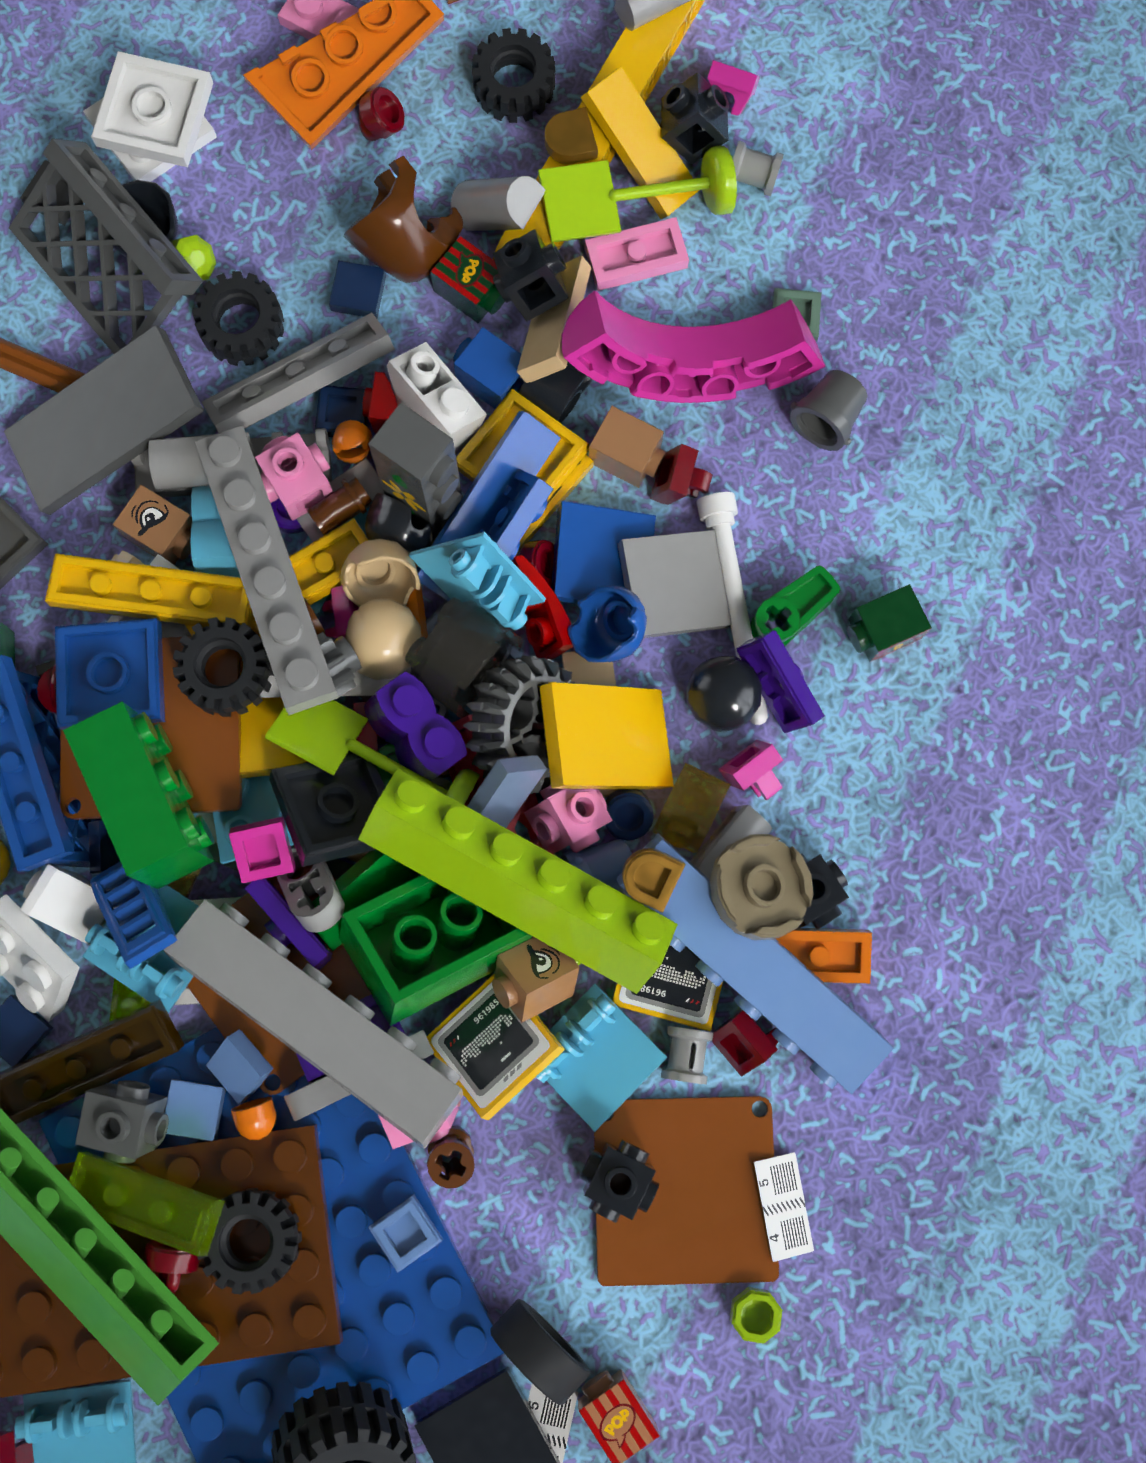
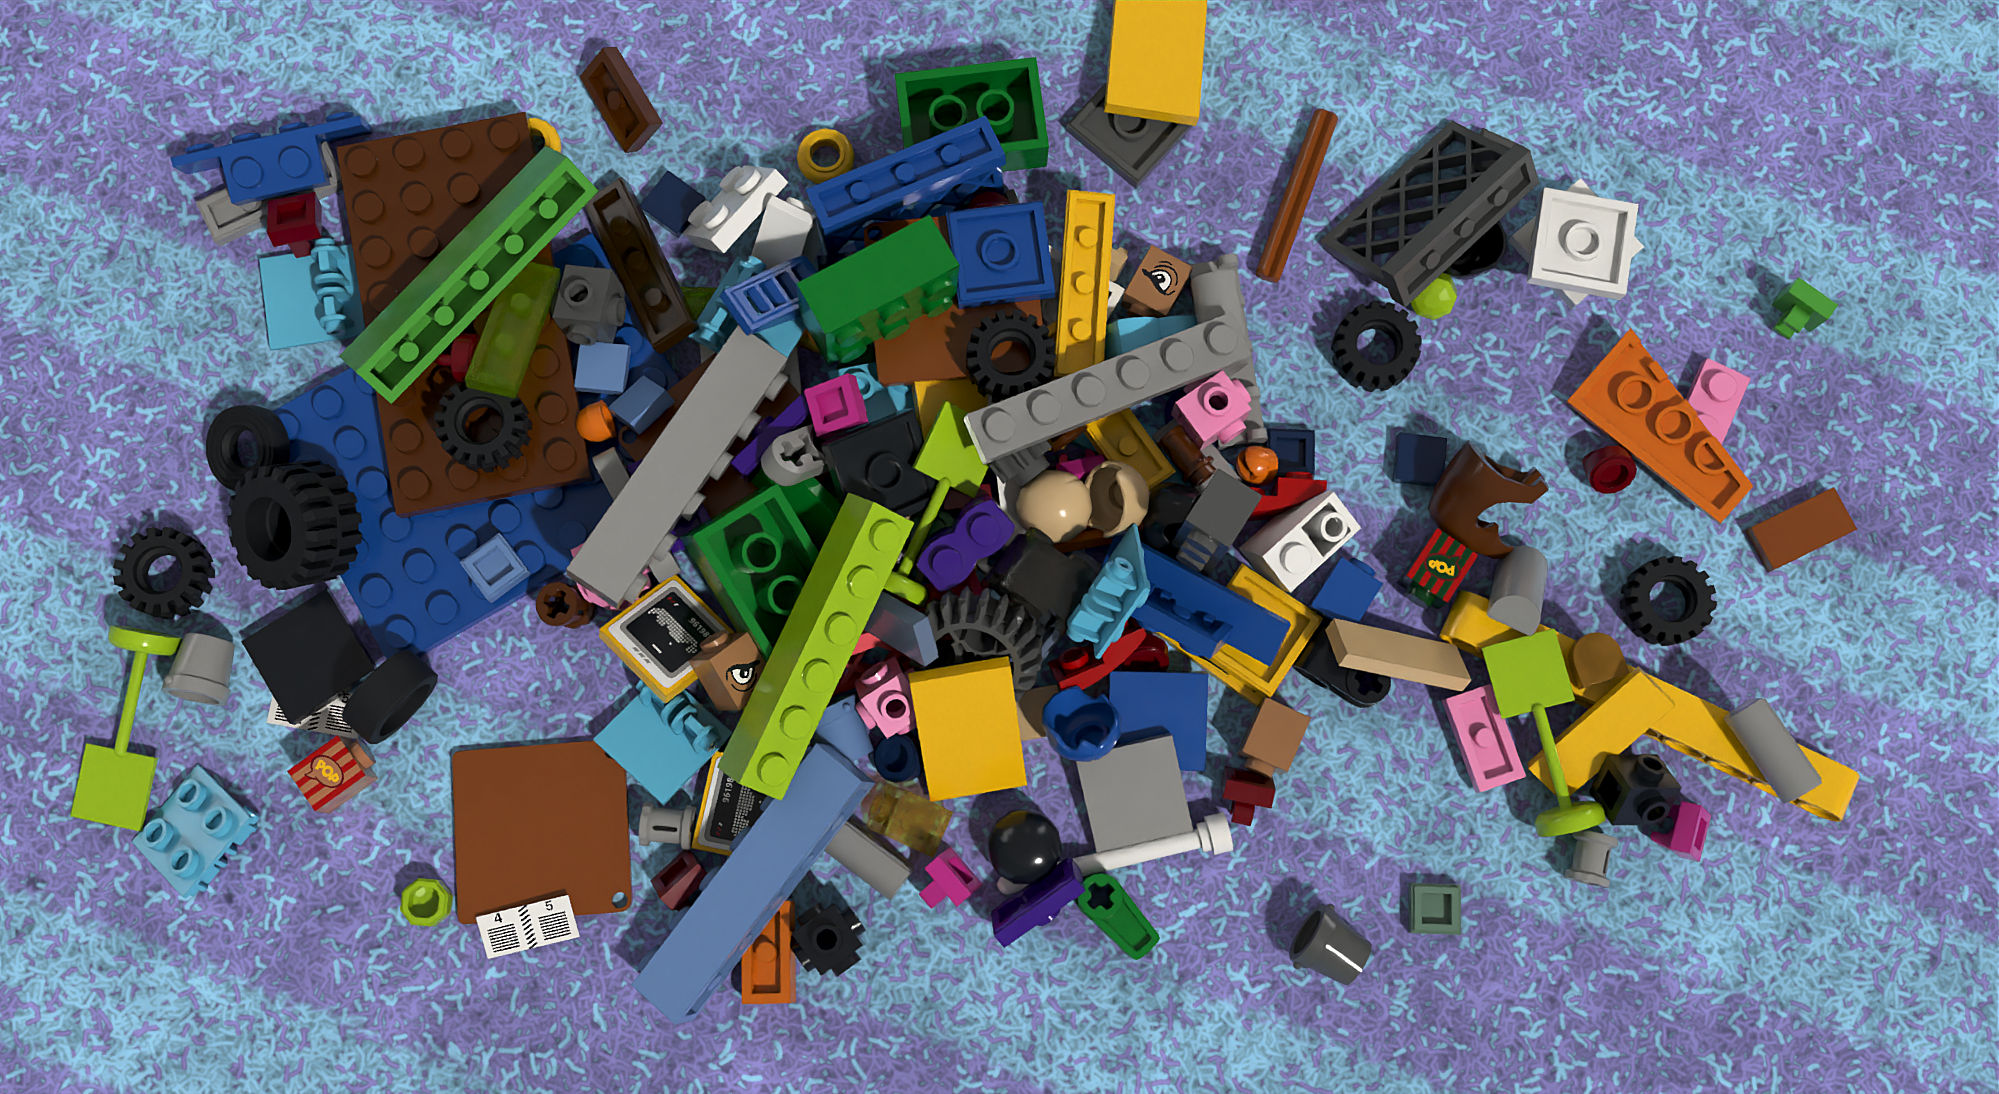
camera: 85 degrees right, 0 degrees up
(103, 420) = (1256, 227): dark grey tile -> none
(299, 374) = (1319, 407): light grey hinge -> none
(530, 275) = (1437, 626): black brick -> none
(611, 1161) = (563, 766): black brick -> none
(651, 877) = (824, 772): pearl gold tile -> none
(689, 361) = (1371, 798): dark pink brick -> none
(761, 887) = (822, 882): dark tan tile -> none
(888, 623) = (1106, 1012): dark green brick -> none

